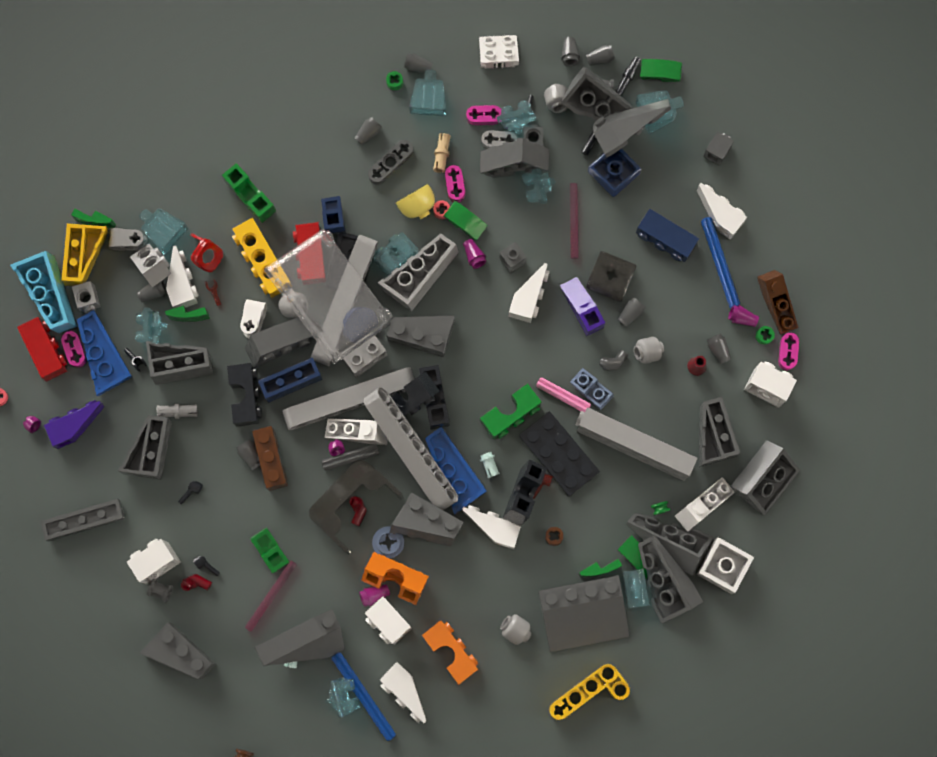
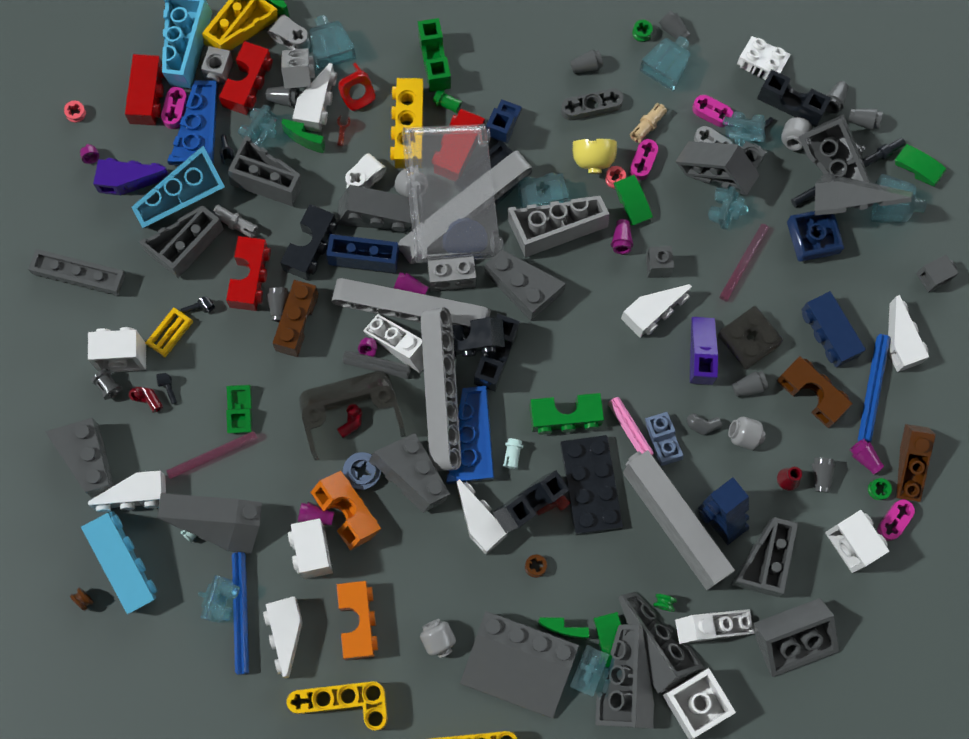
camera: 25 degrees right, 5 degrees down
(119, 310) = (241, 94): none -> red arch
(121, 411) = (182, 187): none -> medium azure wedge
(181, 524) = (175, 338): none -> yellow tile
(220, 460) = (247, 292): none -> red arch
(235, 652) = (136, 490): none -> white slope
(254, 713) = (119, 561): none -> medium azure wedge
(279, 223) = (447, 101): none -> green pin
(336, 383) = (409, 283): none -> magenta cone
(472, 717) = (337, 703): none -> yellow beam
(528, 74) = (779, 94): none -> black arch
(667, 417) = (726, 510): none -> dark blue wedge
(695, 291) = (831, 402): none -> reddish brown arch

